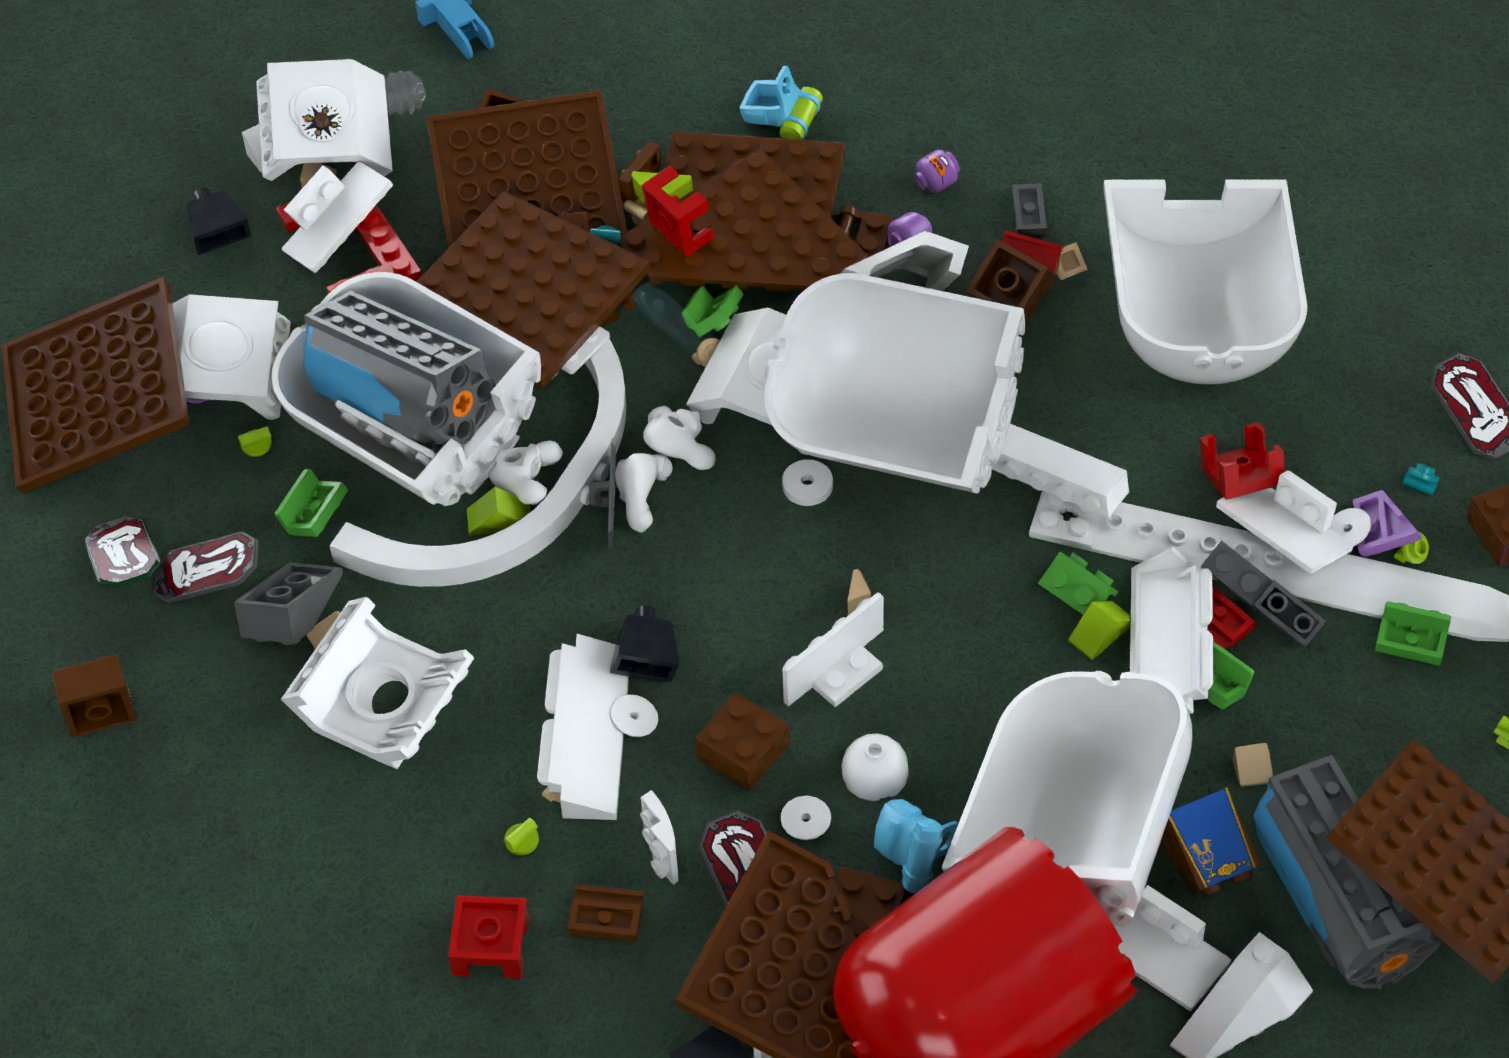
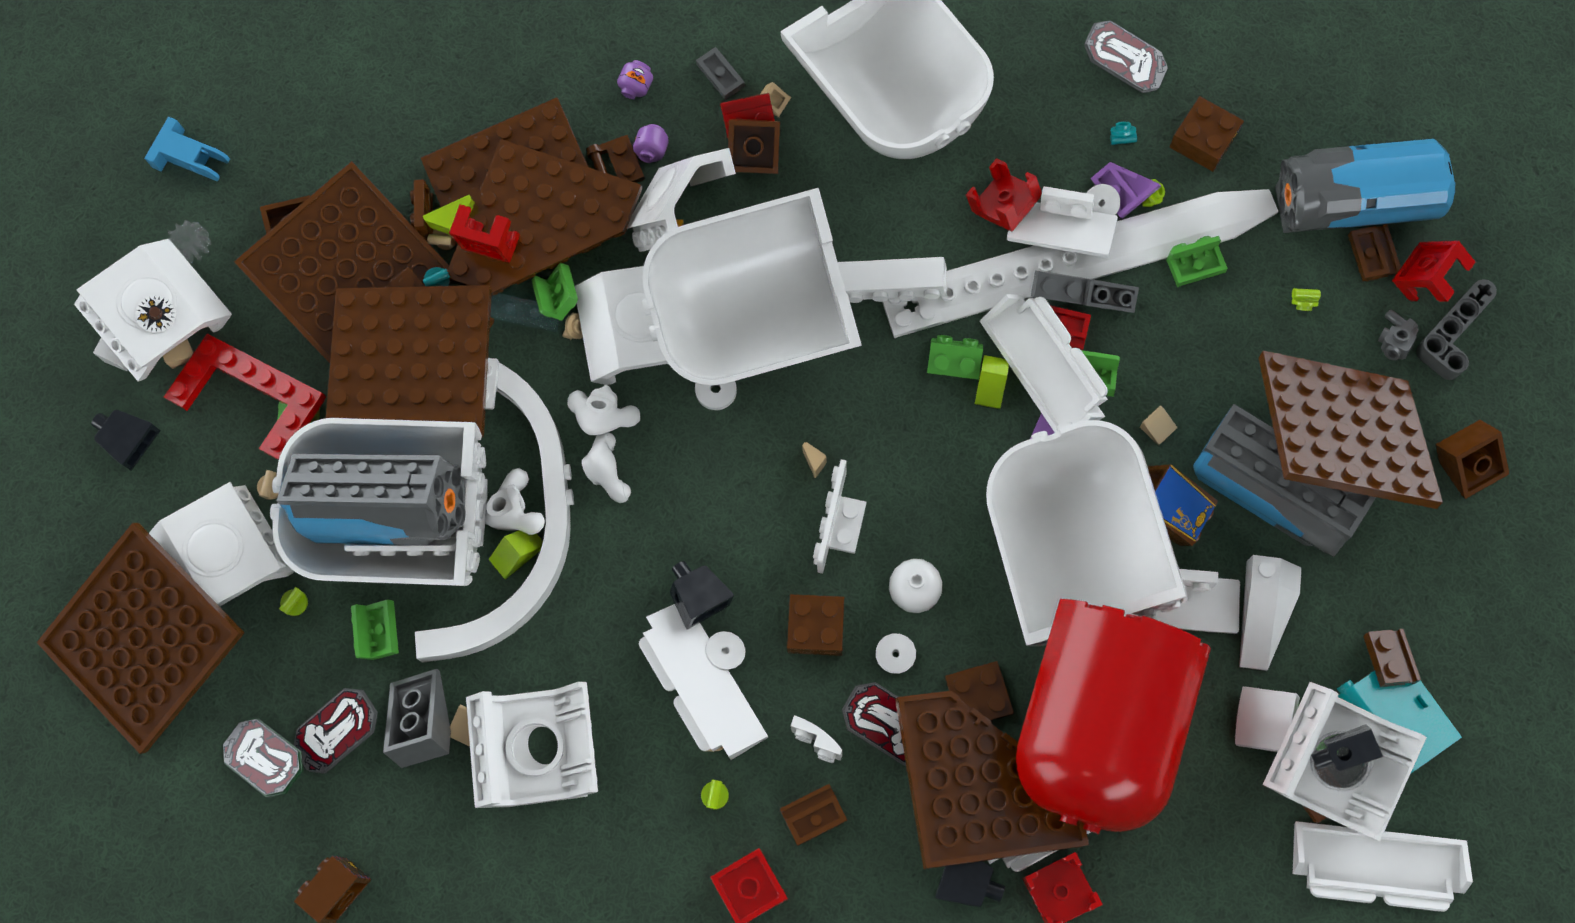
camera: 30 degrees left, 20 degrees up
(331, 211) = (215, 380): white bracket -> none
(596, 500) = (589, 490): dark grey shield -> none
(781, 105) = (485, 89): medium azure piece -> none
(911, 841) = (986, 631): medium azure piece -> none

